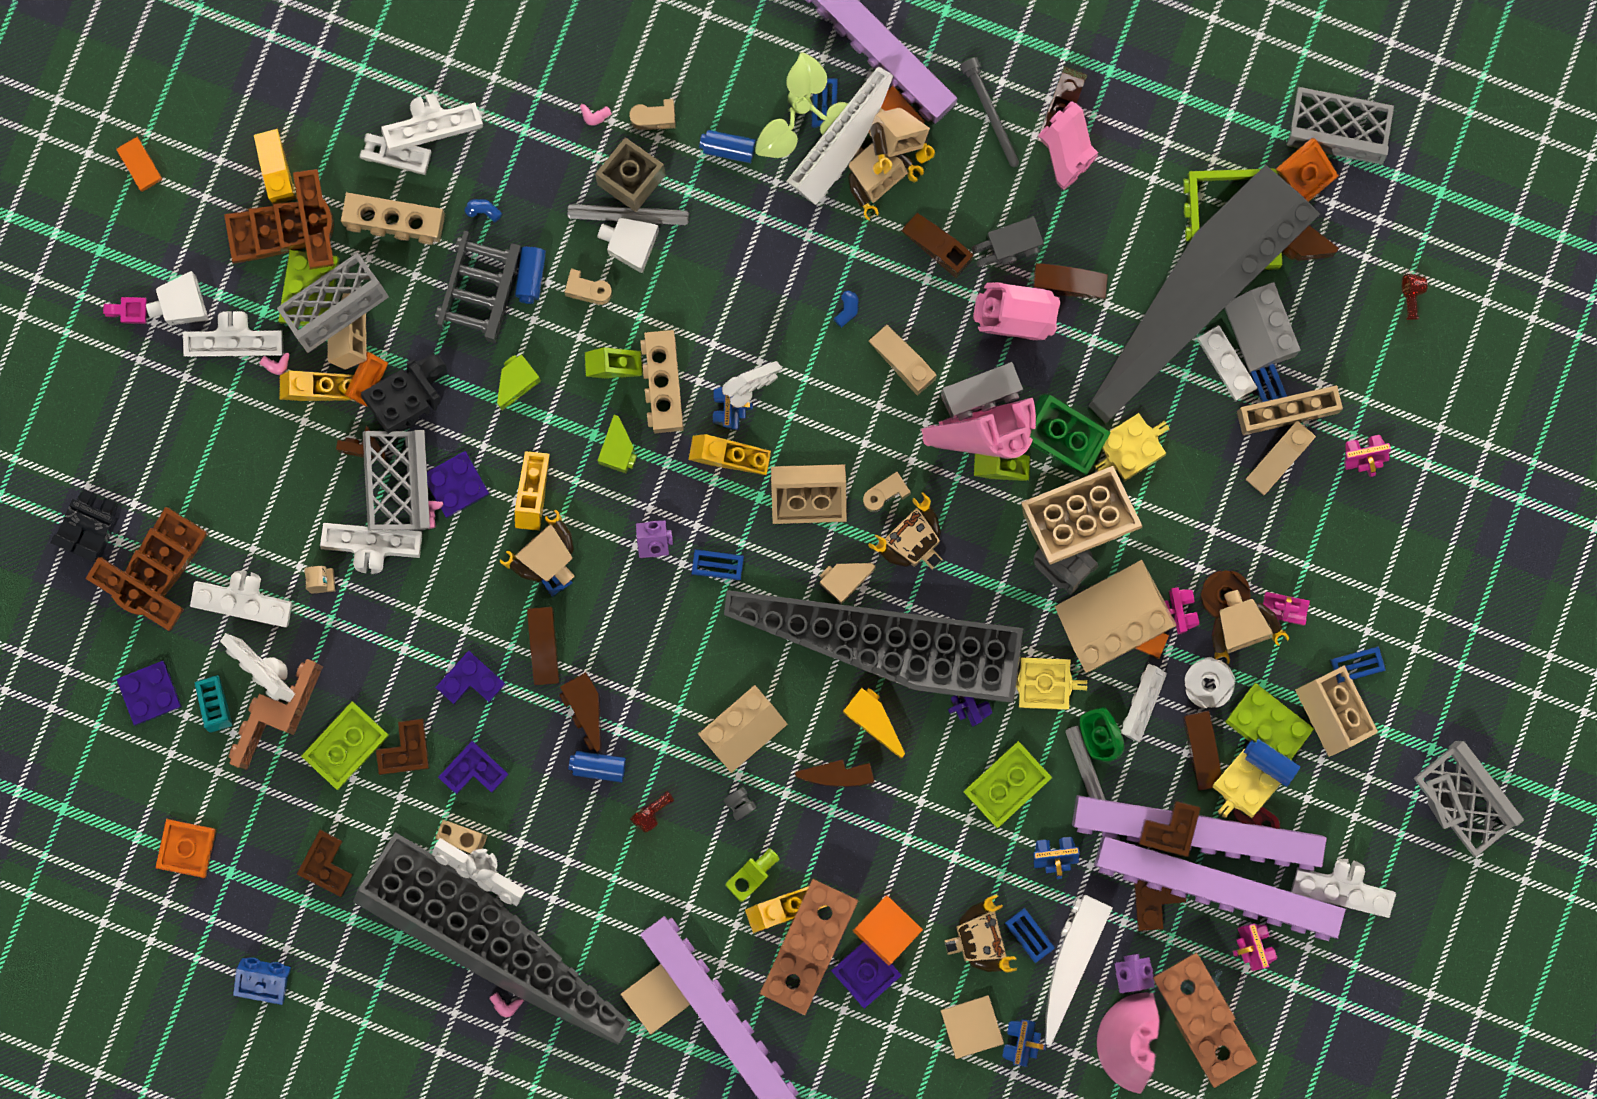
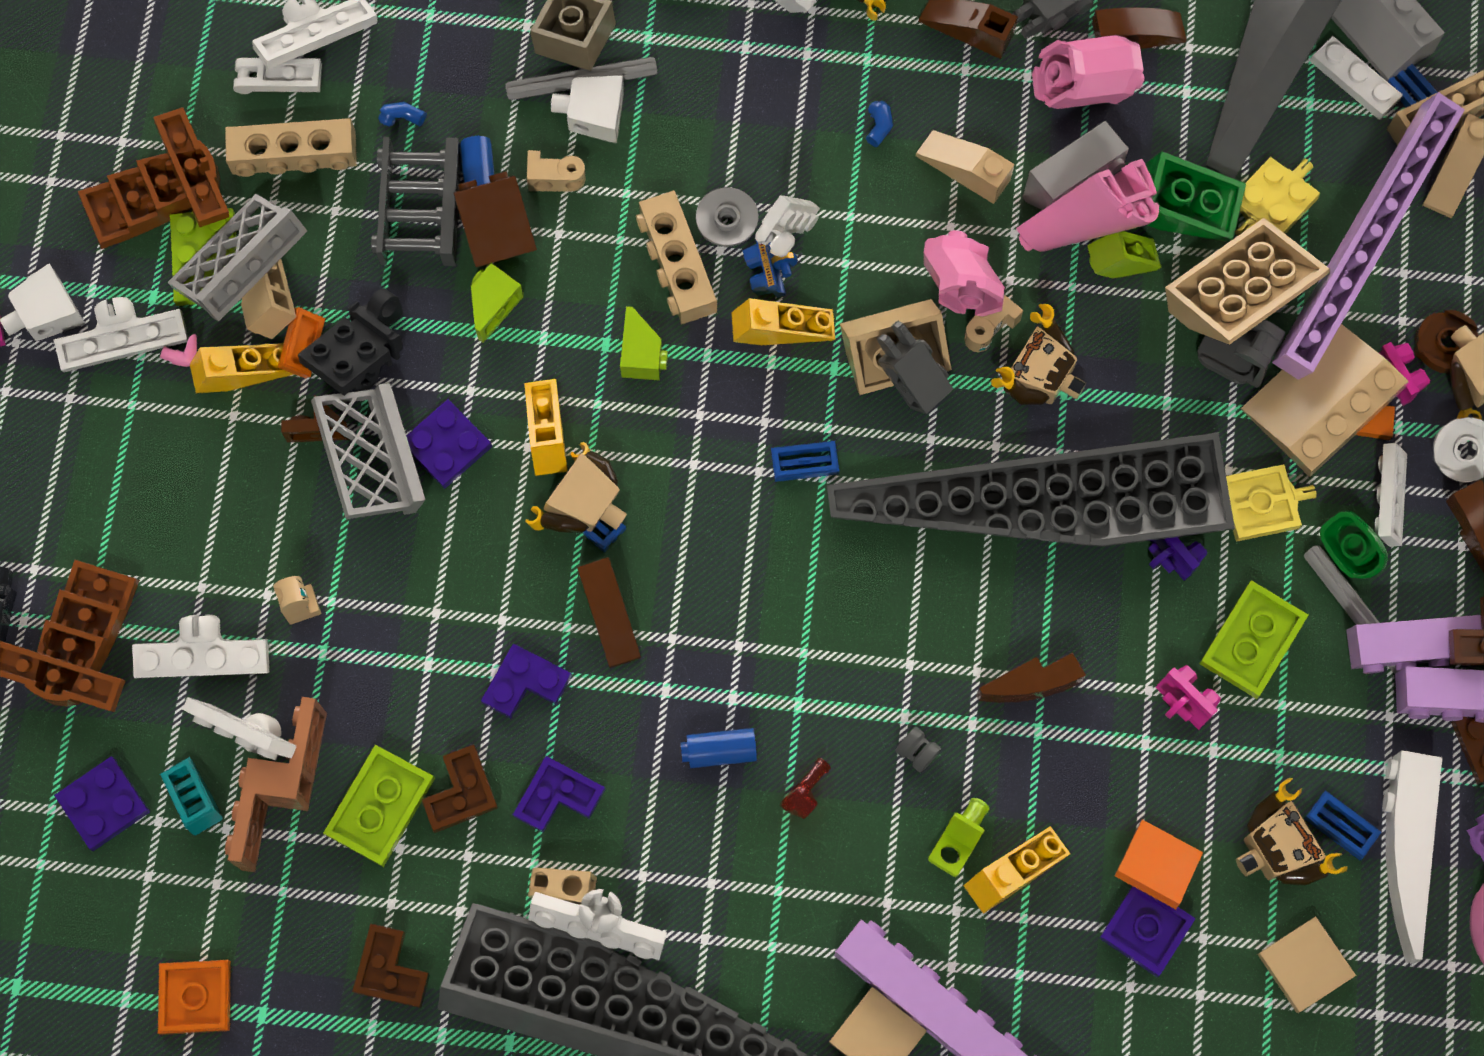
camera: 15 degrees left, 10 degrees down
(274, 167) = (129, 123): yellow slope -> none
(370, 545) = (353, 541): white plate -> none
(433, 505) = (424, 474): bright pink animal -> none
(532, 320) = (494, 219): none -> reddish brown brick
(585, 702) = (681, 671): reddish brown slope -> none
(613, 363) = (607, 250): lime slope -> none
(653, 539) = (716, 445): medium lavender brick -> none
(707, 346) = (730, 204): none -> light grey dish
(743, 729) = (894, 653): tan slope -> none
(808, 947) = (1063, 911): nougat bracket -> none
(814, 520) = (913, 370): none -> dark grey hinge
(844, 579) = (971, 436): tan slope -> none
(871, 454) = (963, 274): none -> bright pink brick
(871, 716) = (1058, 599): yellow slope -> none
(942, 817) = (1186, 699): none -> dark pink hips
(1025, 1046) = (1381, 983): blue hips -> none
(1056, 860) = (1346, 717): blue hips -> none
(1183, 503) = (1368, 236): none -> lavender brick

